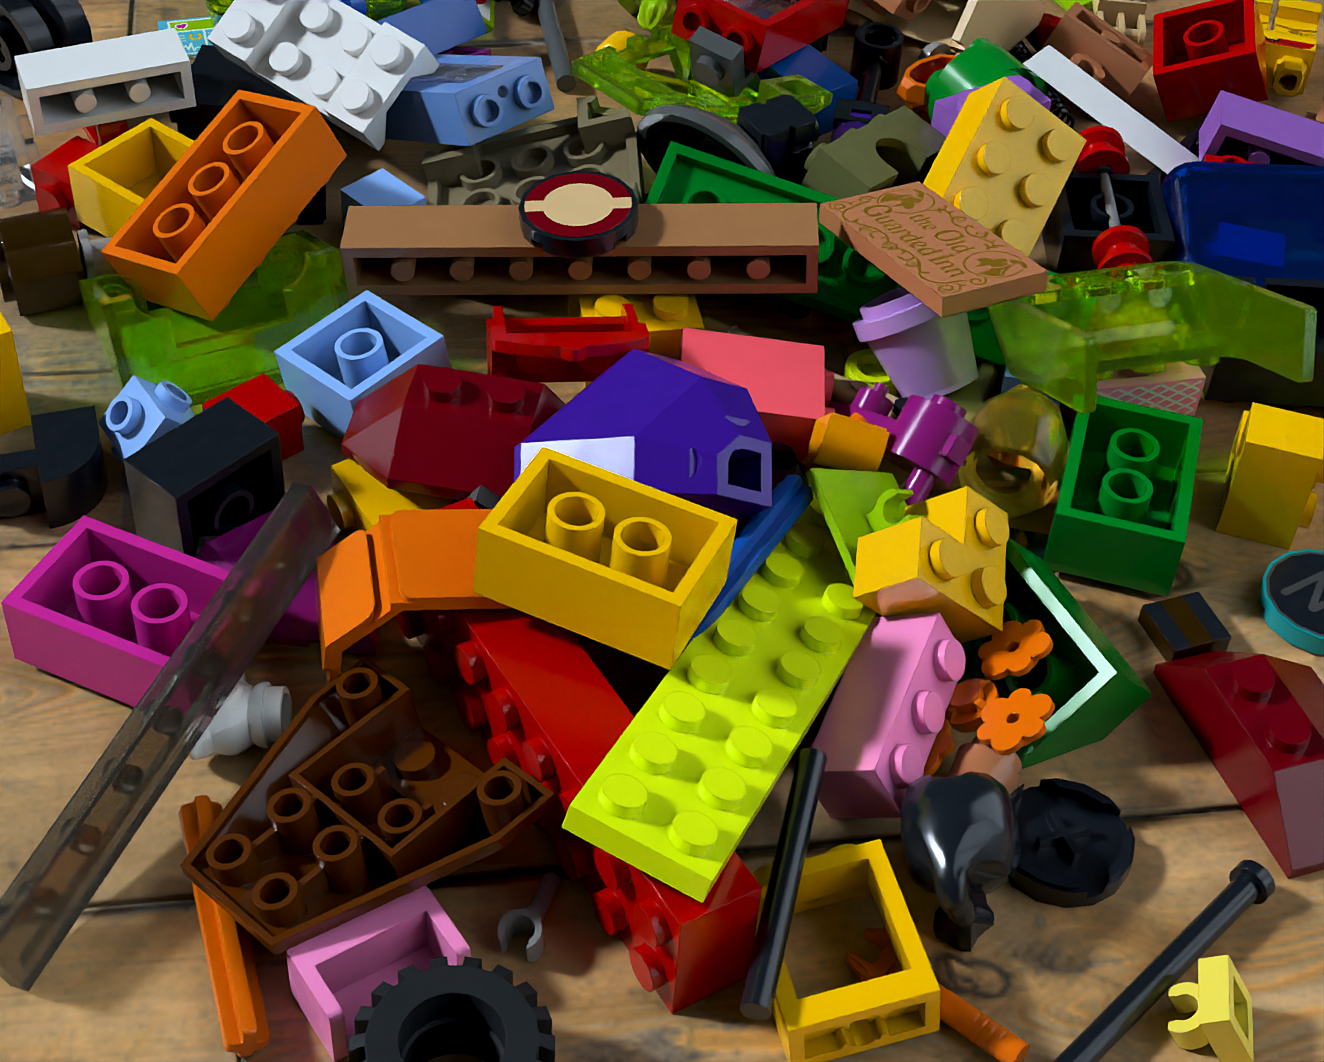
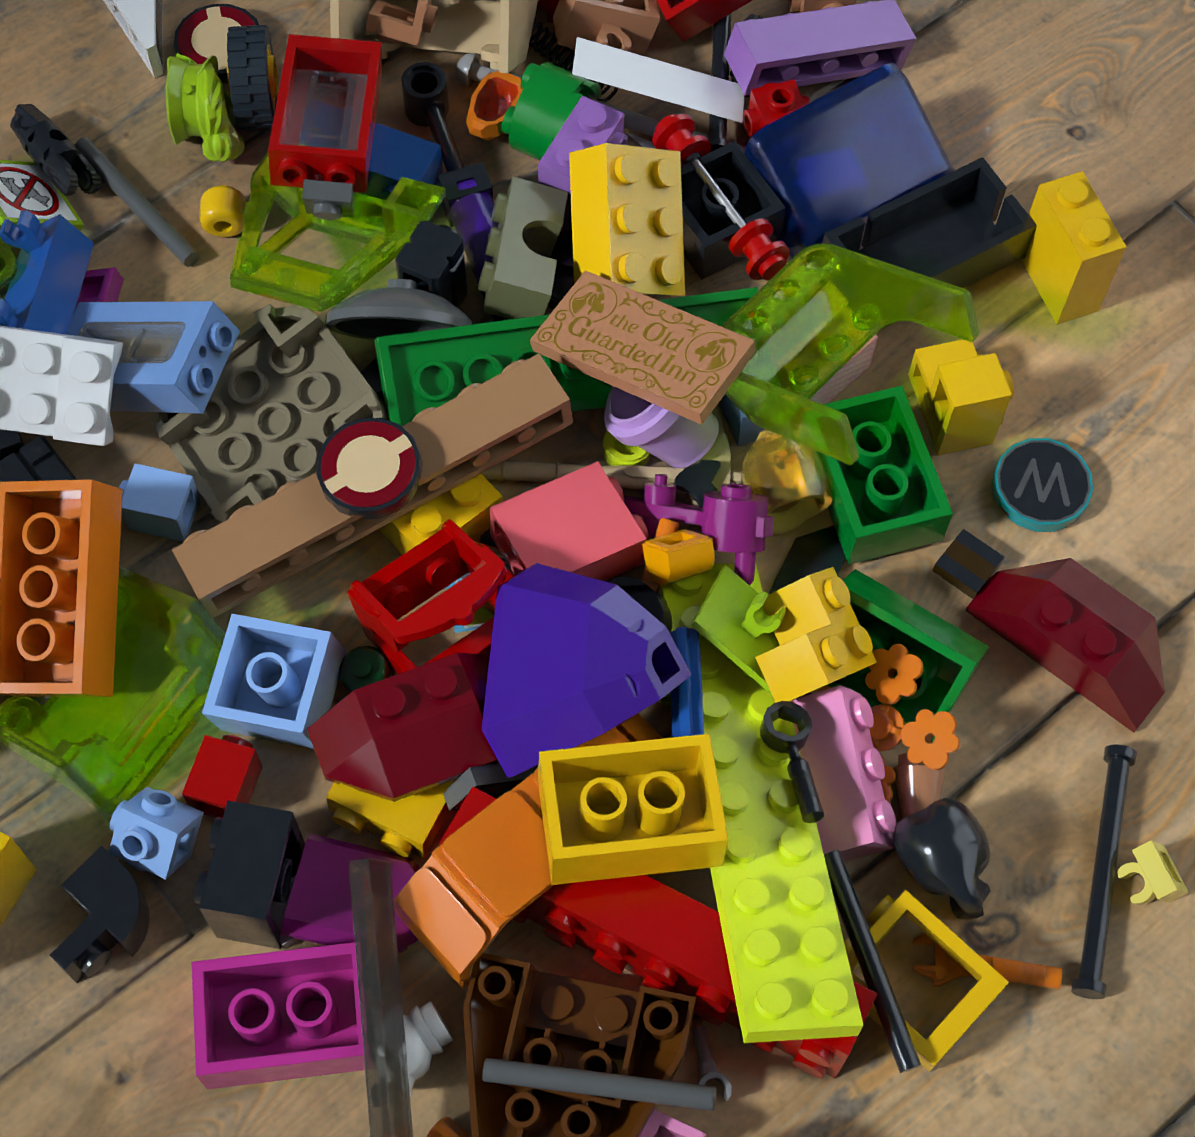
camera: 30 degrees left, 20 degrees up
(390, 821) = (599, 1084): none -> dark grey bar
(838, 633) = (798, 768): none -> black piece
(1070, 844) = (997, 789): black tile -> none

